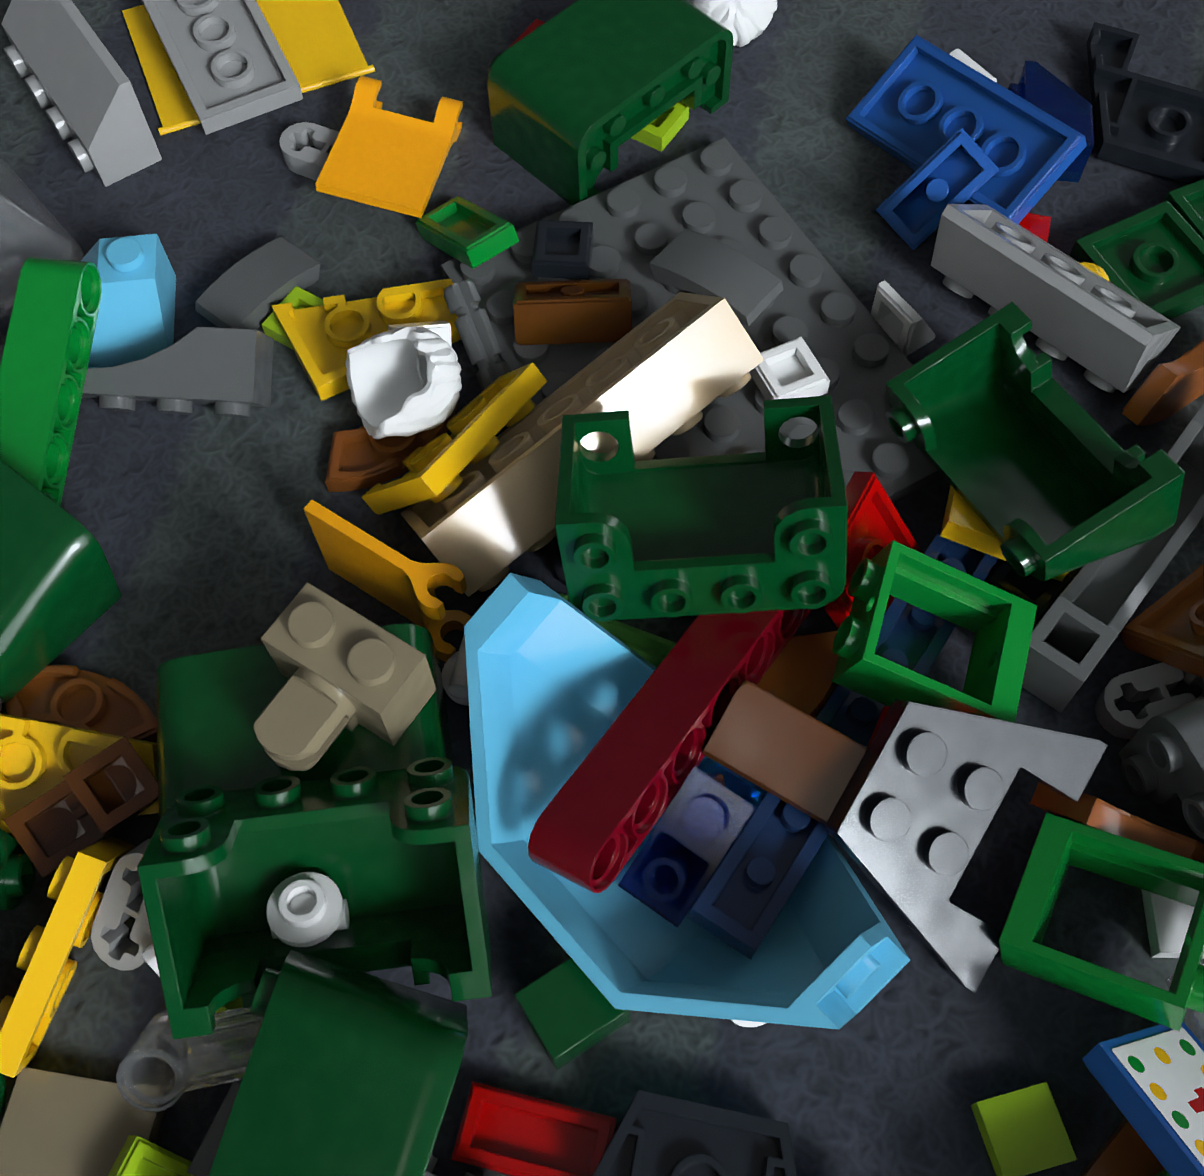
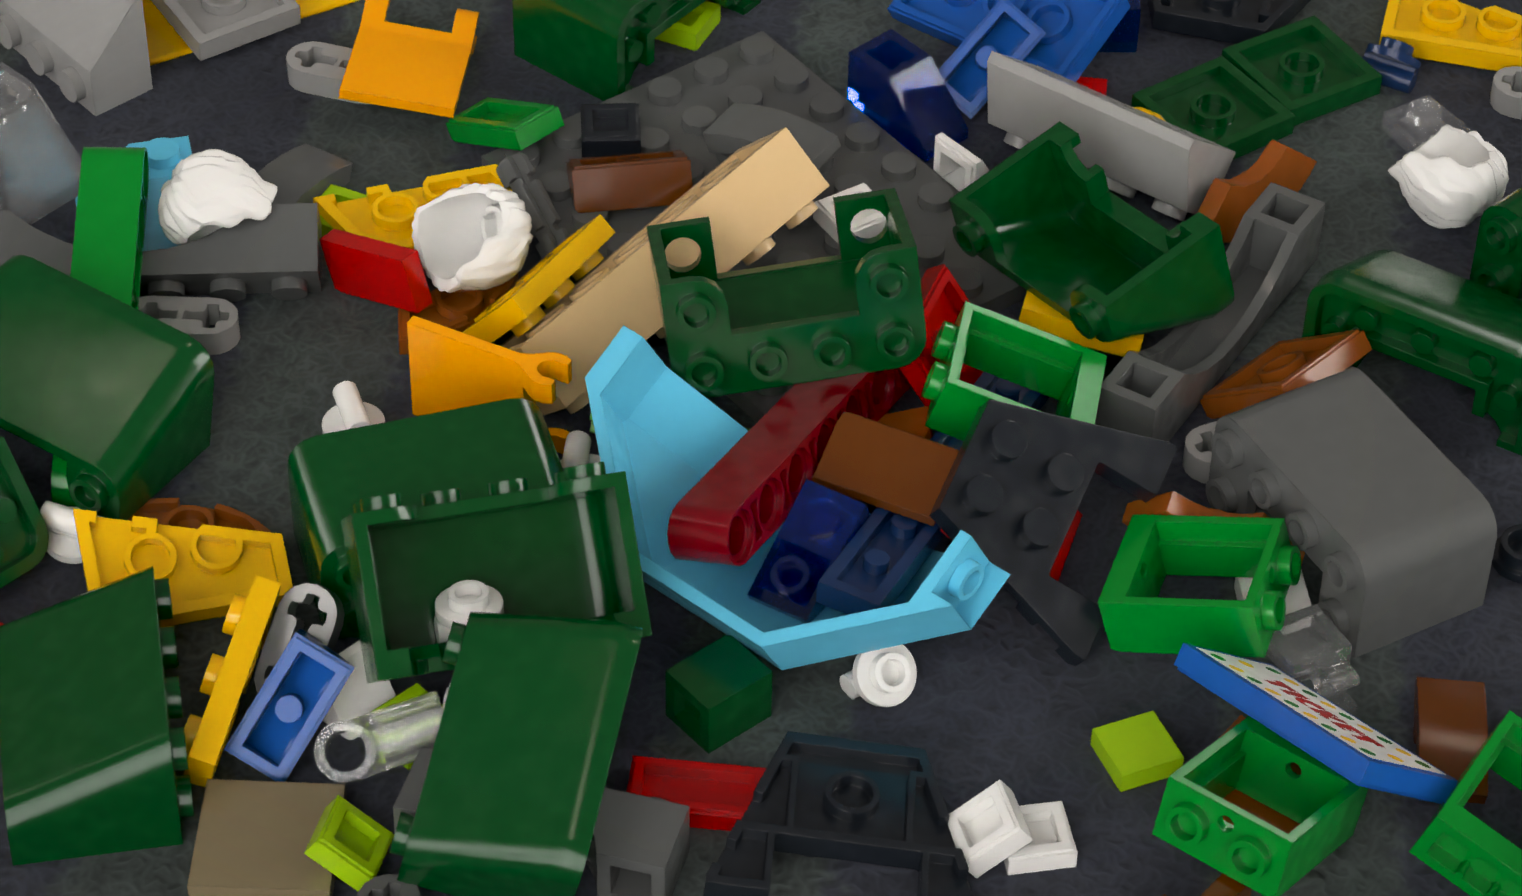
camera: 10 degrees left, 20 degrees down
(84, 807) = (205, 593): reddish brown slope -> none
(110, 992) = (290, 706): none -> blue slope
(124, 449) = (194, 316): none -> light grey beam
(155, 315) = (211, 193): none -> white hair
(264, 582) = (350, 410): none -> white plate
(312, 403) = (376, 270): none -> red tile
(338, 677) = (481, 418): dark tan brick -> none
(852, 227) = (903, 93): none -> clear blue slope

